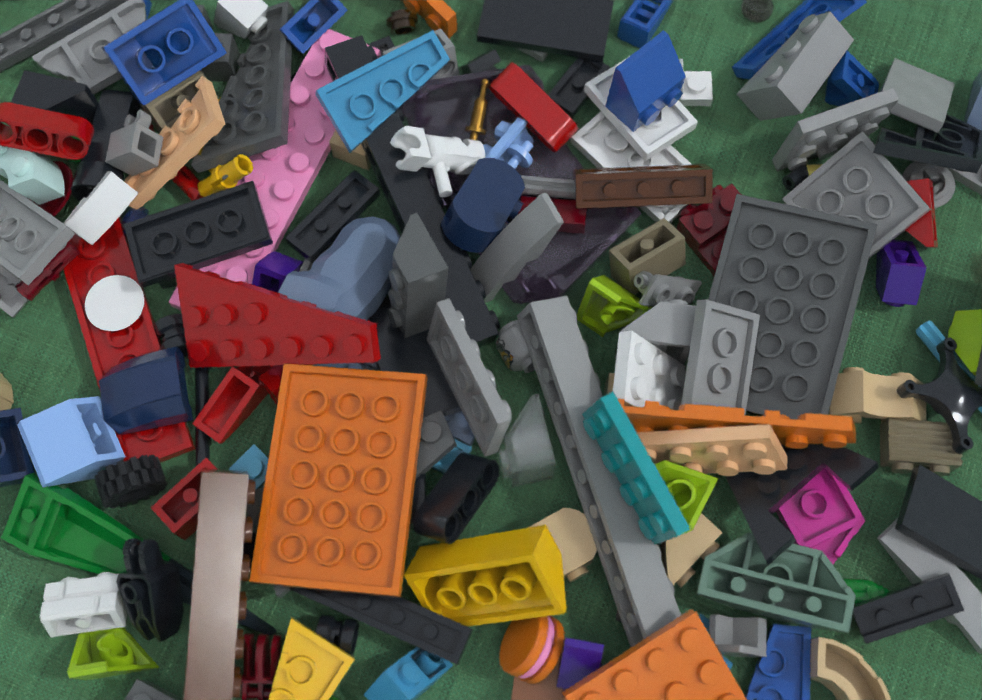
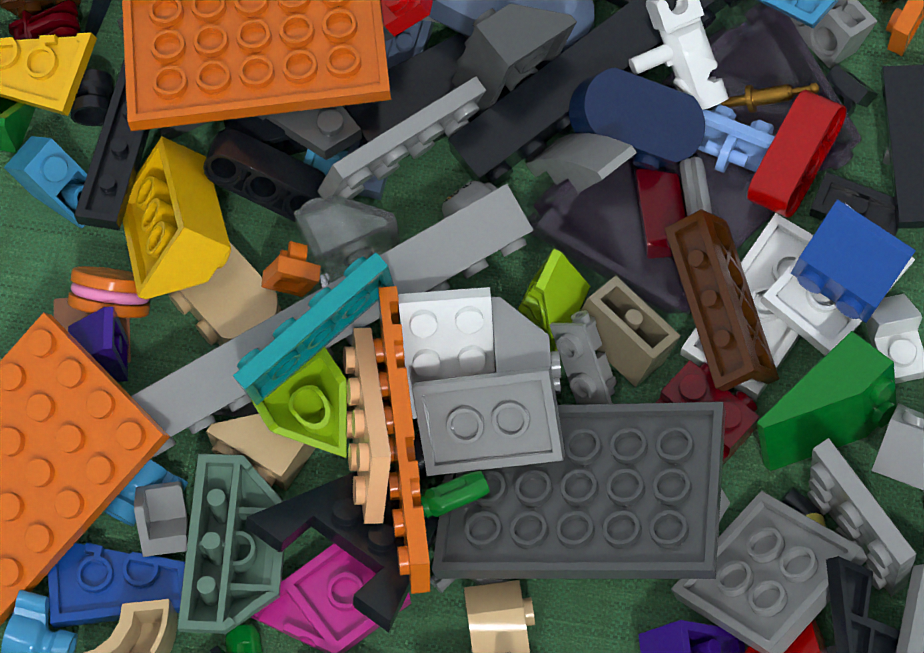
camera: 80 degrees right, 5 degrees down
(551, 489) = (291, 272): none -> orange tile
(730, 121) = (835, 400): none -> green slope
(765, 394) = (454, 494): none -> green piece

